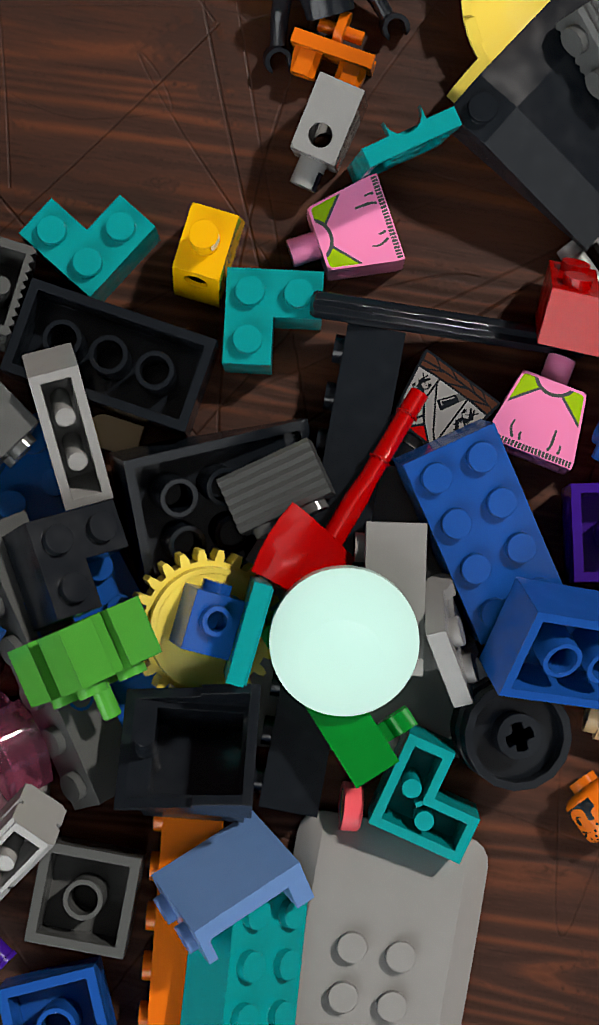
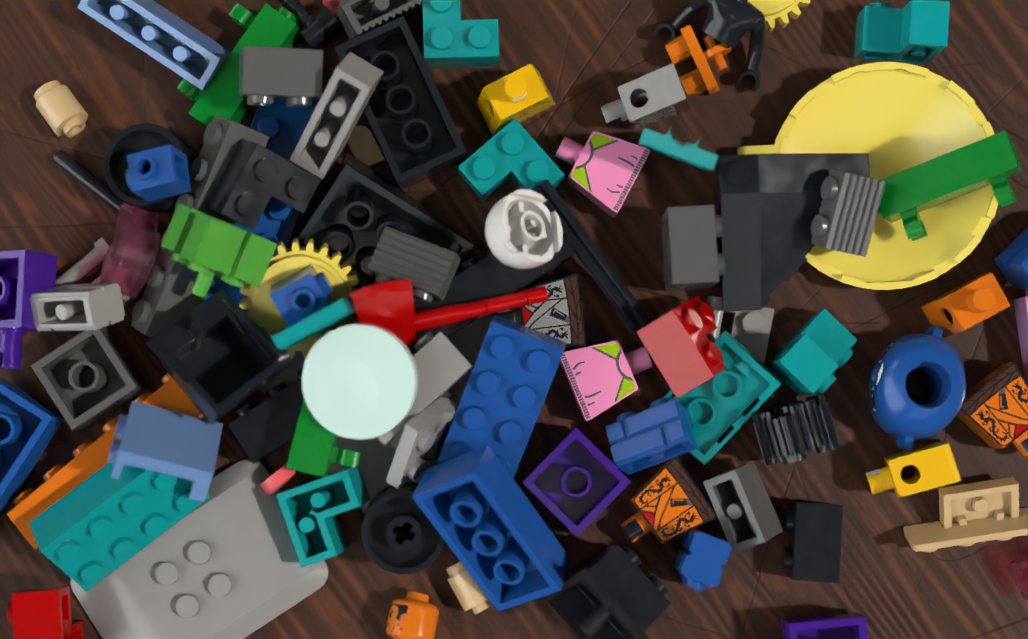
camera: 45 degrees right, 0 degrees up
(345, 355) = (523, 230): none -> white cylinder
(502, 222) = (691, 248): none -> dark grey brick

